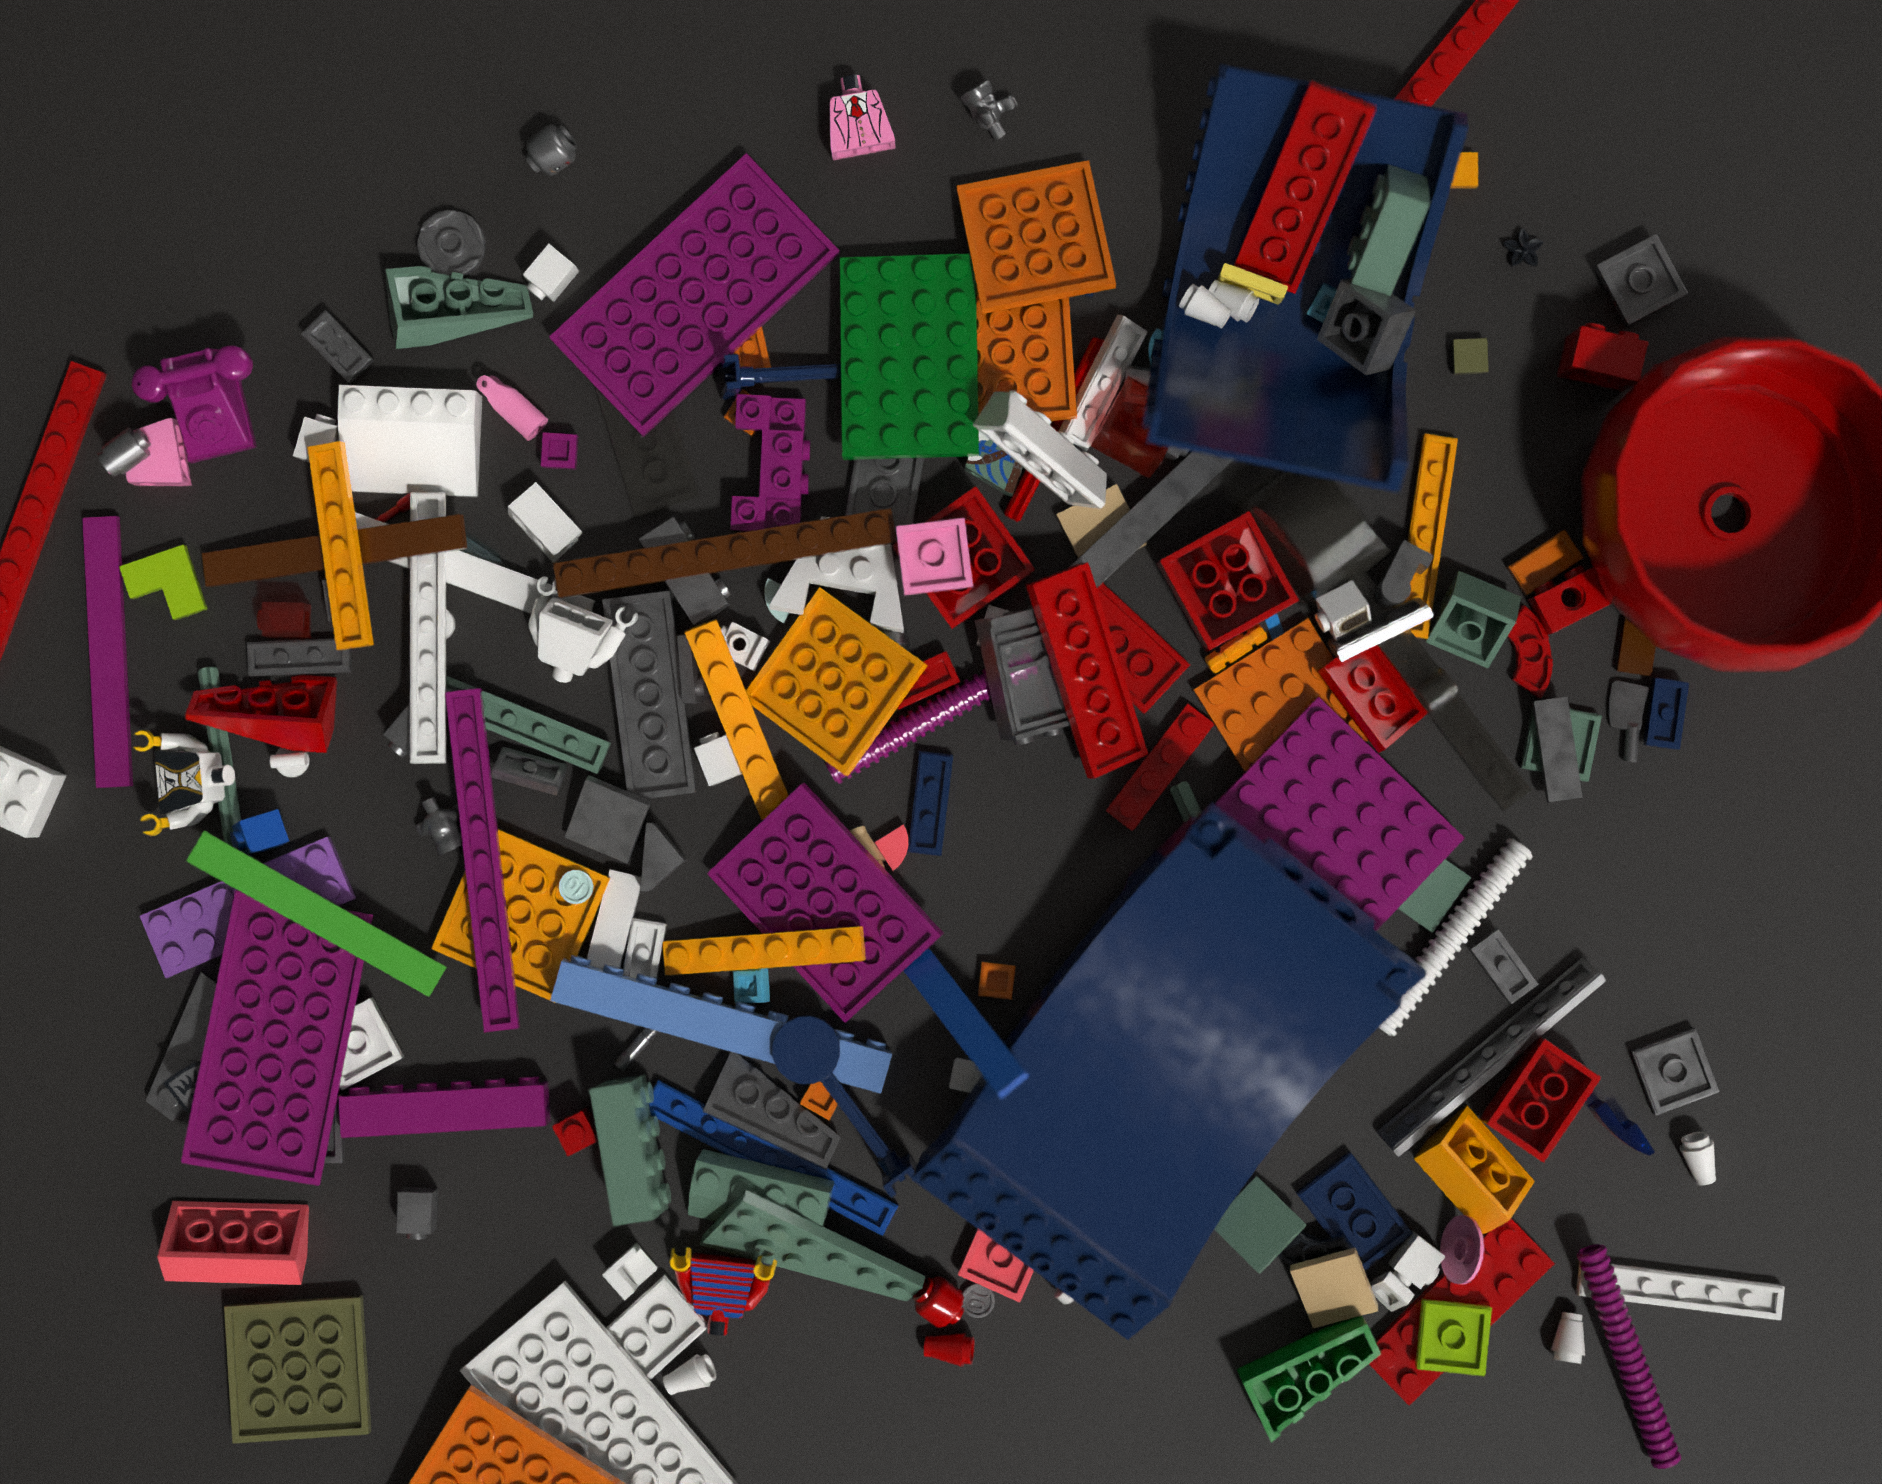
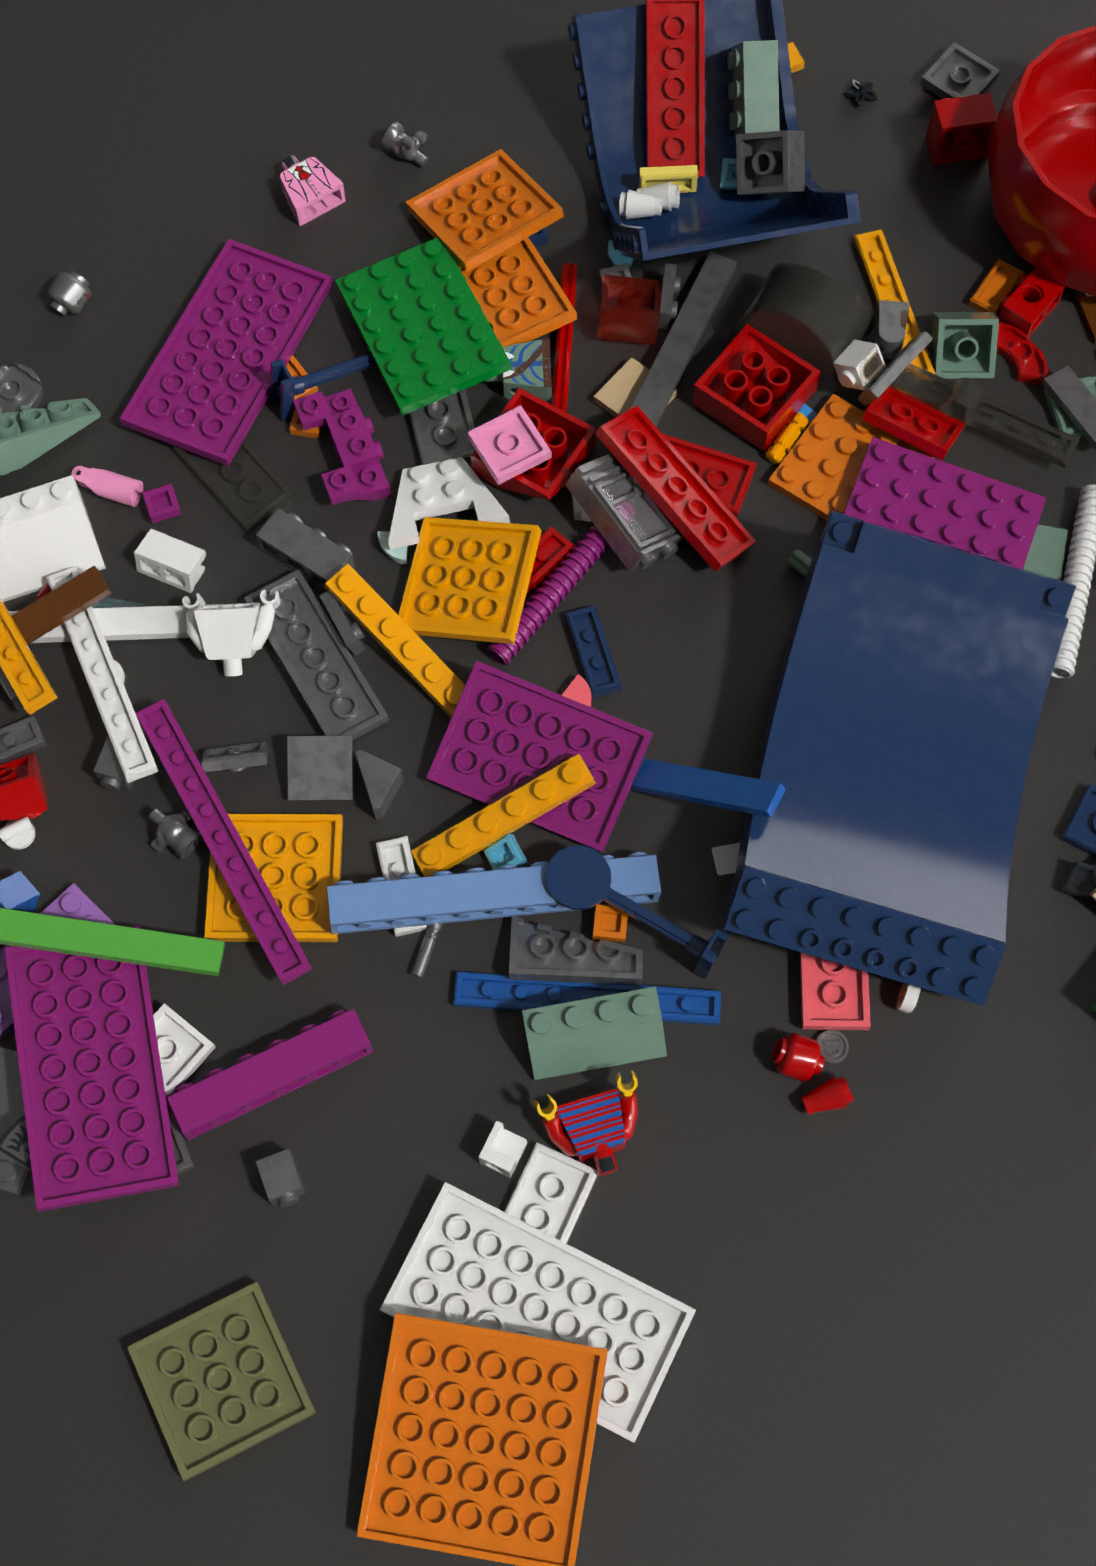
camera: 20 degrees left, 20 degrees down
(235, 1243) = (116, 1283): coral slope -> none
(539, 730) = (234, 723): sand green plate -> none
(550, 274) = (103, 378): white brick -> none
(576, 886) = (314, 831): light aqua piece -> none
(576, 1131) = (402, 1041): red brick -> none
(614, 919) = (359, 844): white tile -> none
(630, 1149) = (453, 1027): sand green brick -> none
(693, 1374) = (600, 1224): white cone -> none
(717, 759) = (396, 681): white brick -> none
(724, 553) = (331, 516): reddish brown plate -> none
(754, 649) = (385, 584): white brick -> none
(763, 1228) = (657, 1053): sand green wing -> none
(996, 980) = (717, 761): orange tile -> none
(1043, 450) = (560, 343): white slope -> none
(1103, 380) = (585, 292): white tile -> none
(1159, 767) = (770, 550): red plate -> none
(1259, 1225) = (1044, 872): sand green tile -> none
(1469, 356) = (860, 173): olive tile -> none

